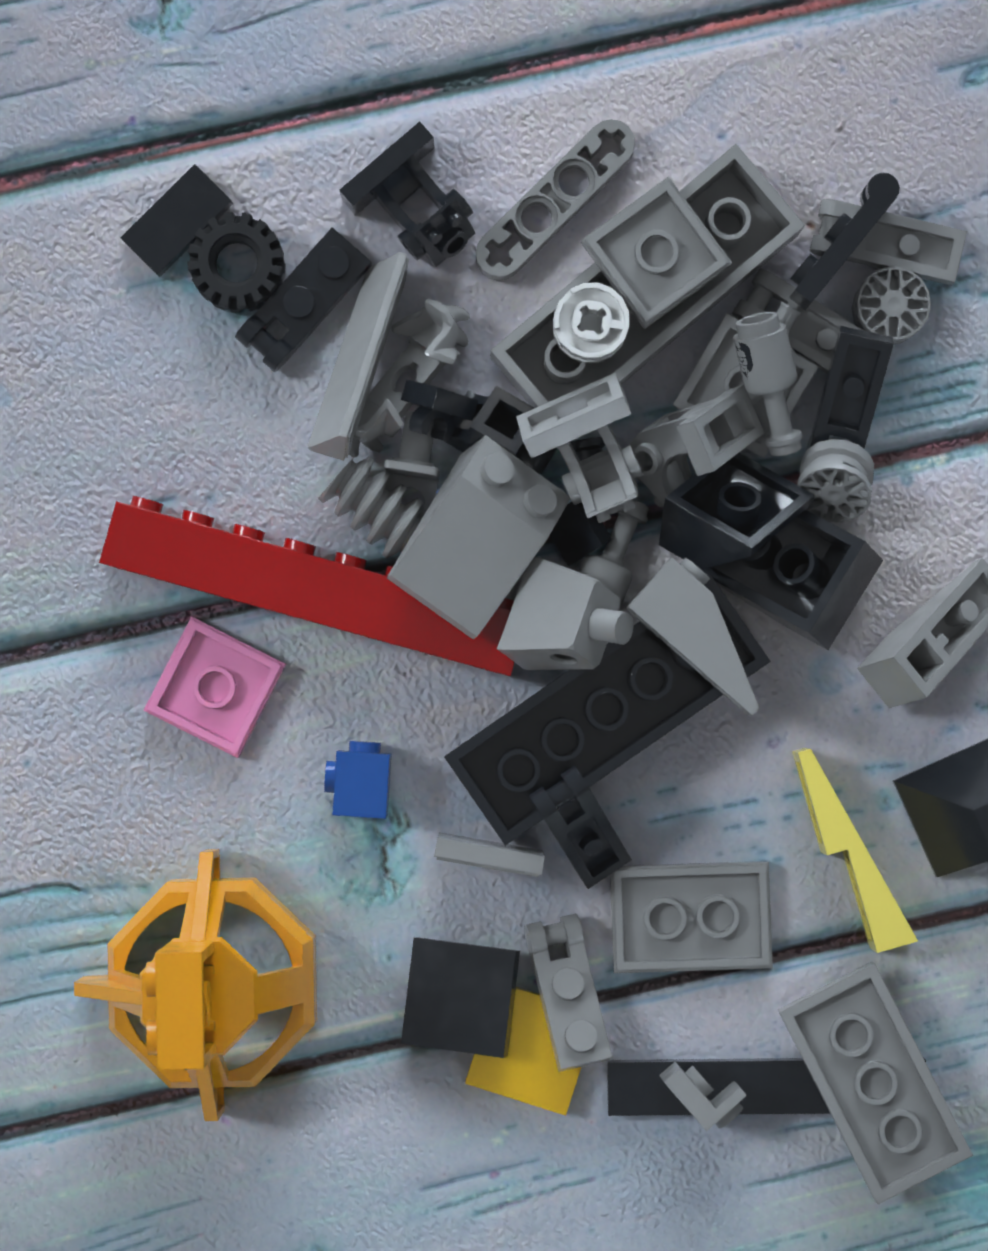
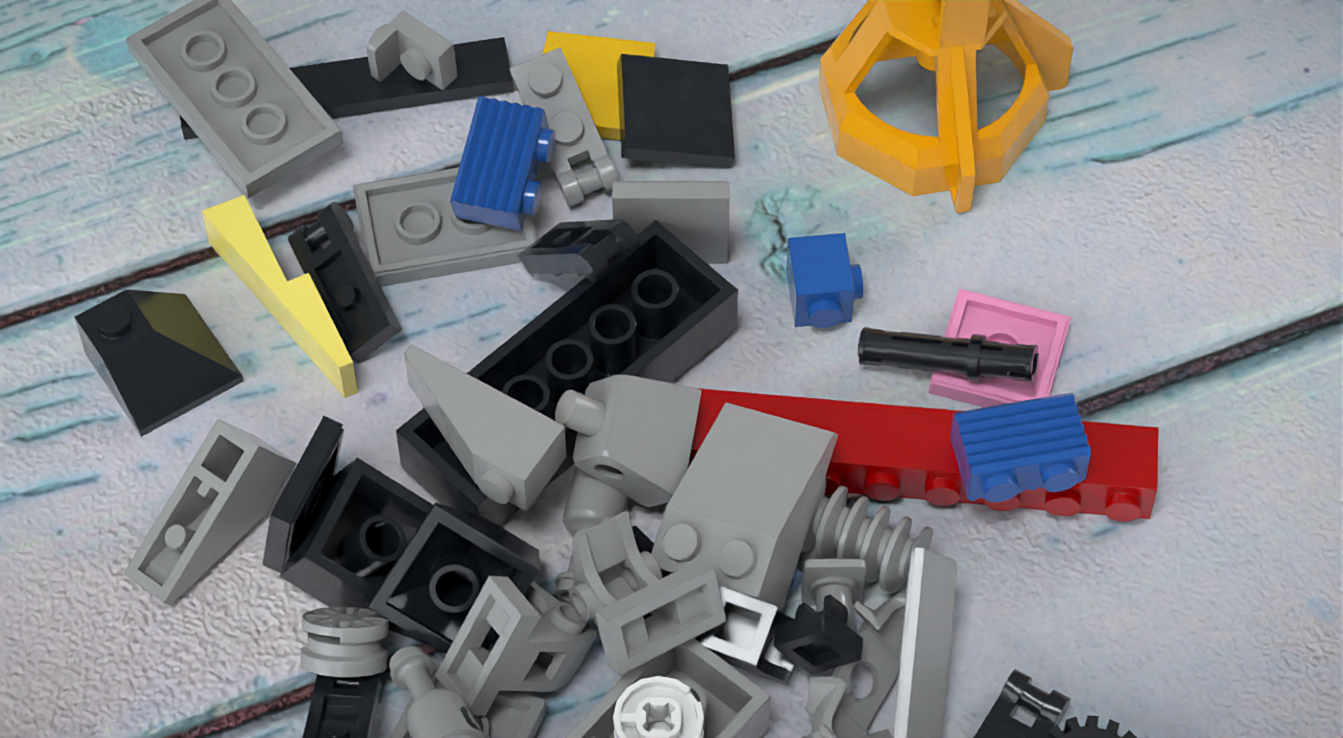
camera: 175 degrees right, 30 degrees down
(227, 546) = (1020, 447): none -> blue brick
(261, 676) = (961, 356): none -> black pin
(635, 942) = (501, 164): none -> blue brick
(794, 857) = (345, 282): none -> black plate
(856, 620) = (302, 493): none -> black tile

